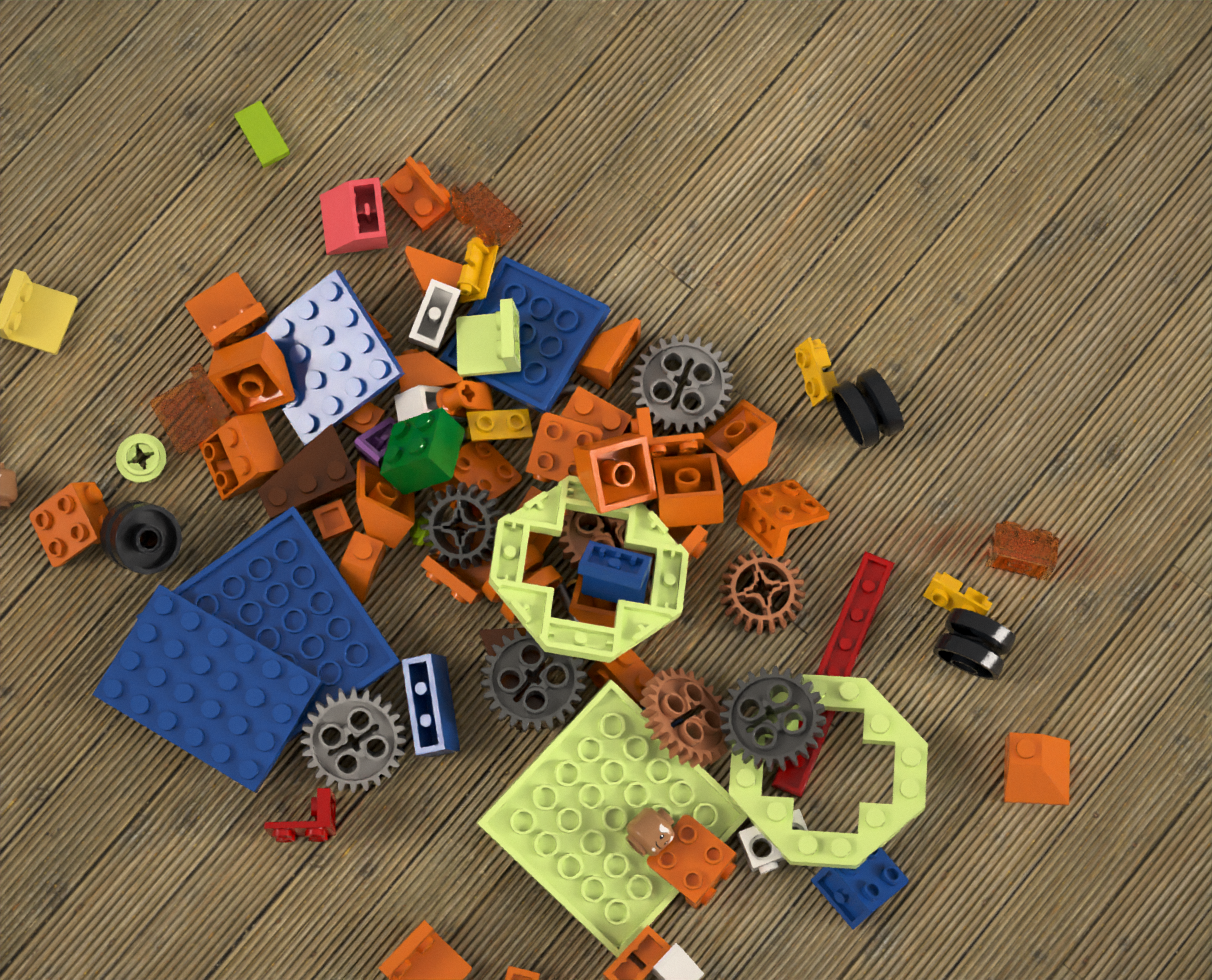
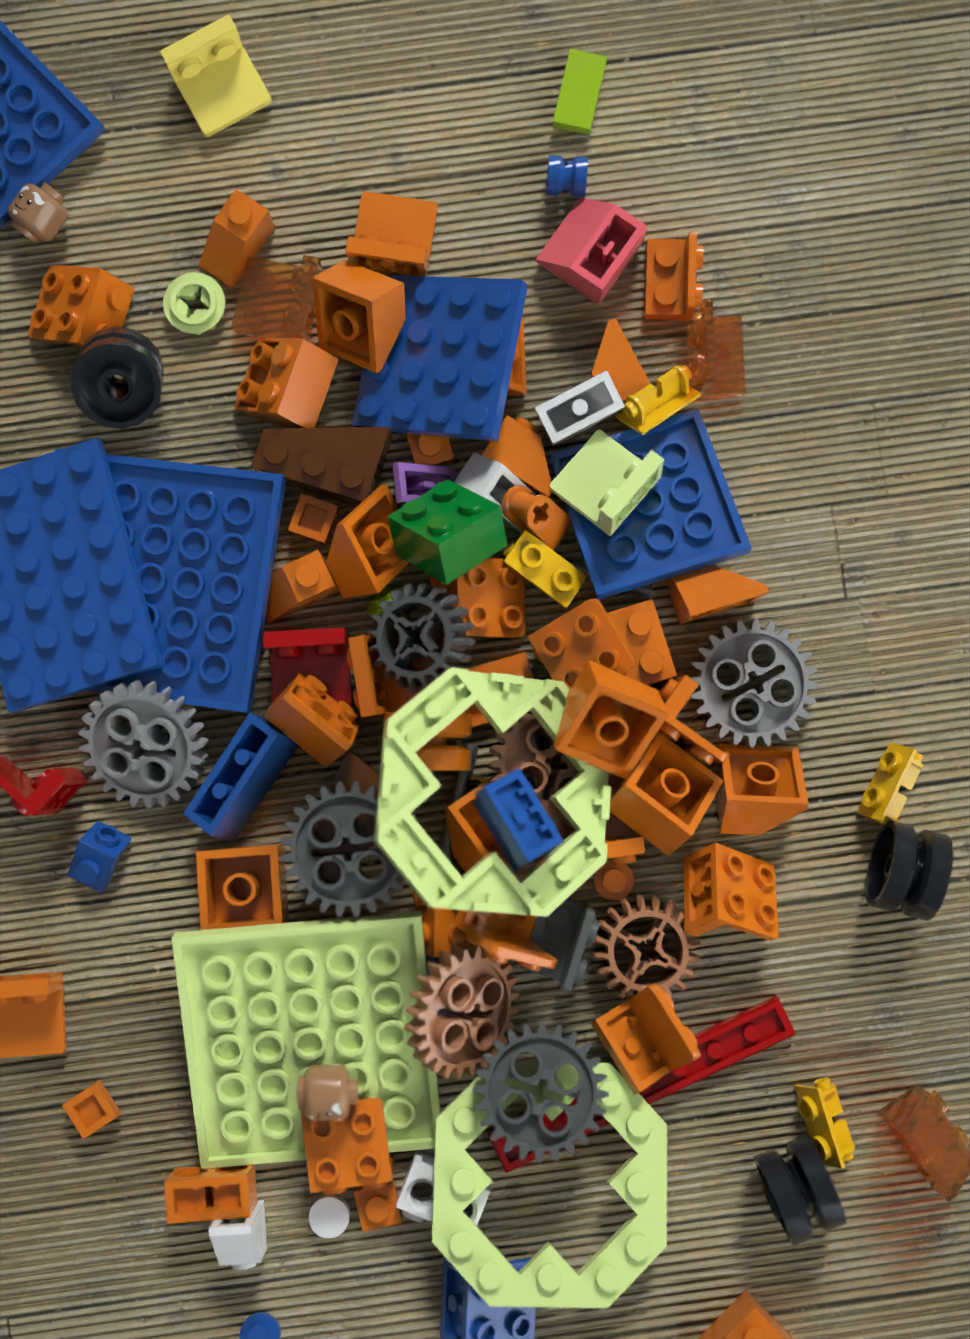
camera: 45 degrees right, 10 degrees up
(132, 398) = (234, 236): none -> orange slope
(301, 188) = (567, 176): none -> blue wheel
(385, 834) = (98, 856): none -> blue bracket
(412, 609) = (313, 653): none -> red bracket
(443, 633) = (314, 719): none -> orange slope
(487, 765) = (242, 886): none -> orange brick
(666, 649) = (504, 937): none -> orange bracket
(706, 570) = (613, 881): none -> orange plate
(706, 631) = (564, 937): none -> dark grey bracket
(721, 918) = (329, 1216): none -> white tile
(744, 886) = (378, 1207): none -> orange plate
(807, 636) = (646, 1038): none -> orange bracket

